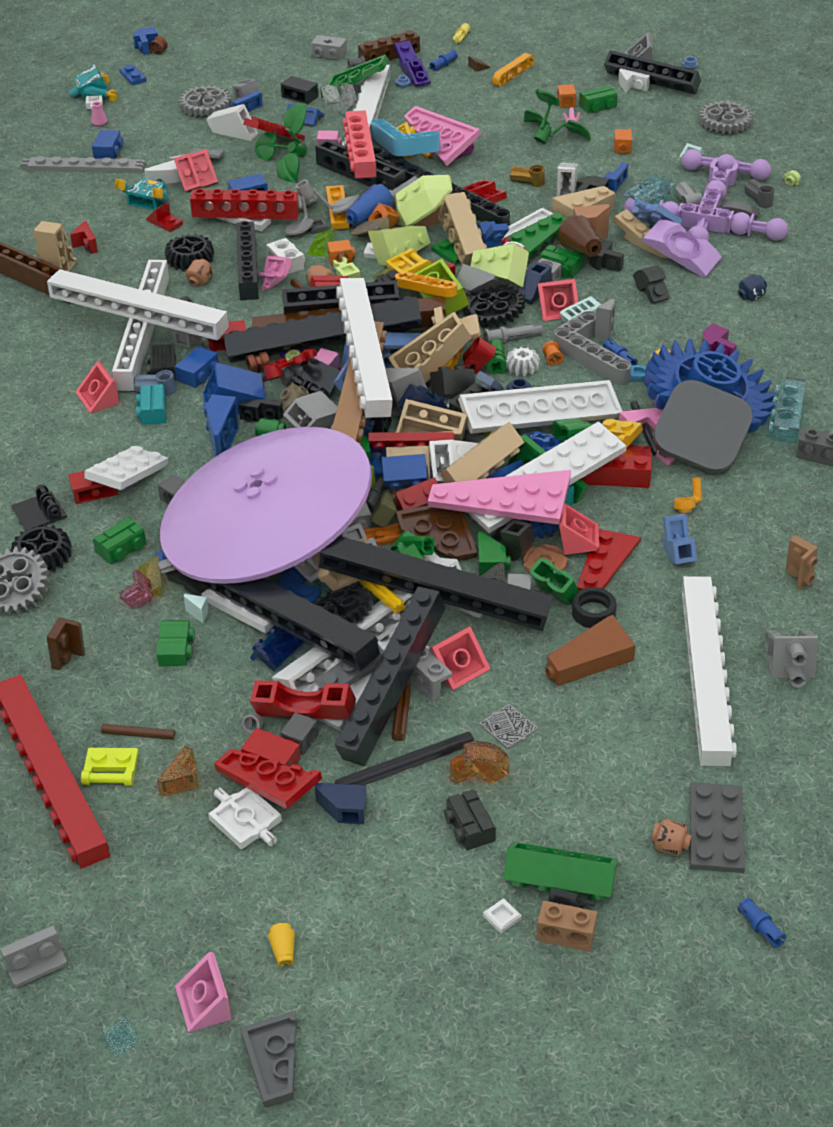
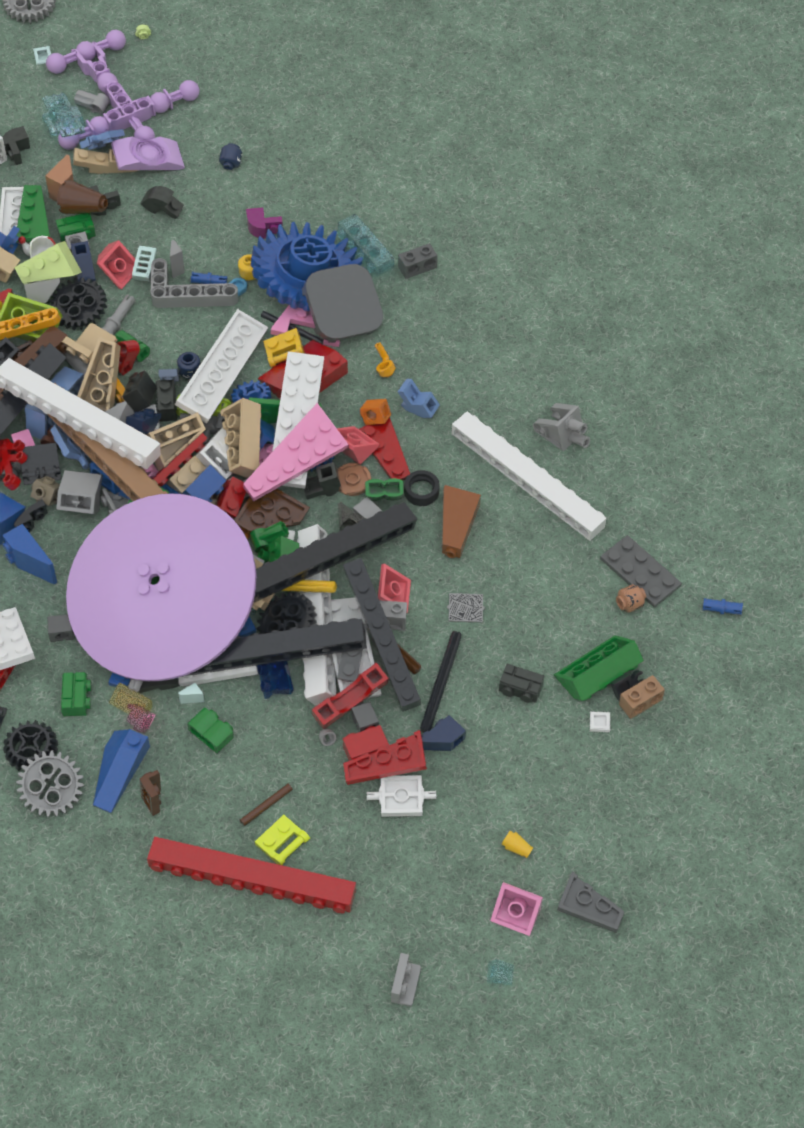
camera: 50 degrees left, 15 degrees up
(90, 610) = (119, 763): none -> blue wedge
(179, 774) = (333, 808): clear orange slope -> none
(267, 425) = (57, 527): green brick -> none
(479, 759) = (485, 643): clear orange brick -> none
(491, 553) = (321, 503): green slope -> none
(522, 361) = (156, 336): white gear -> none
(551, 350) = (166, 313): orange bush -> none
(568, 428) = (260, 369): green brick -> none
(595, 196) = (30, 164): tan wedge -> none
(617, 177) = (16, 118): blue panel -> none
(628, 523) = (375, 411): none -> orange brick
(737, 207) = (140, 88): dark grey slope -> none
(763, 194) = (140, 62): dark grey piece -> none
(801, 561) = (503, 357): medium nougat bracket -> none

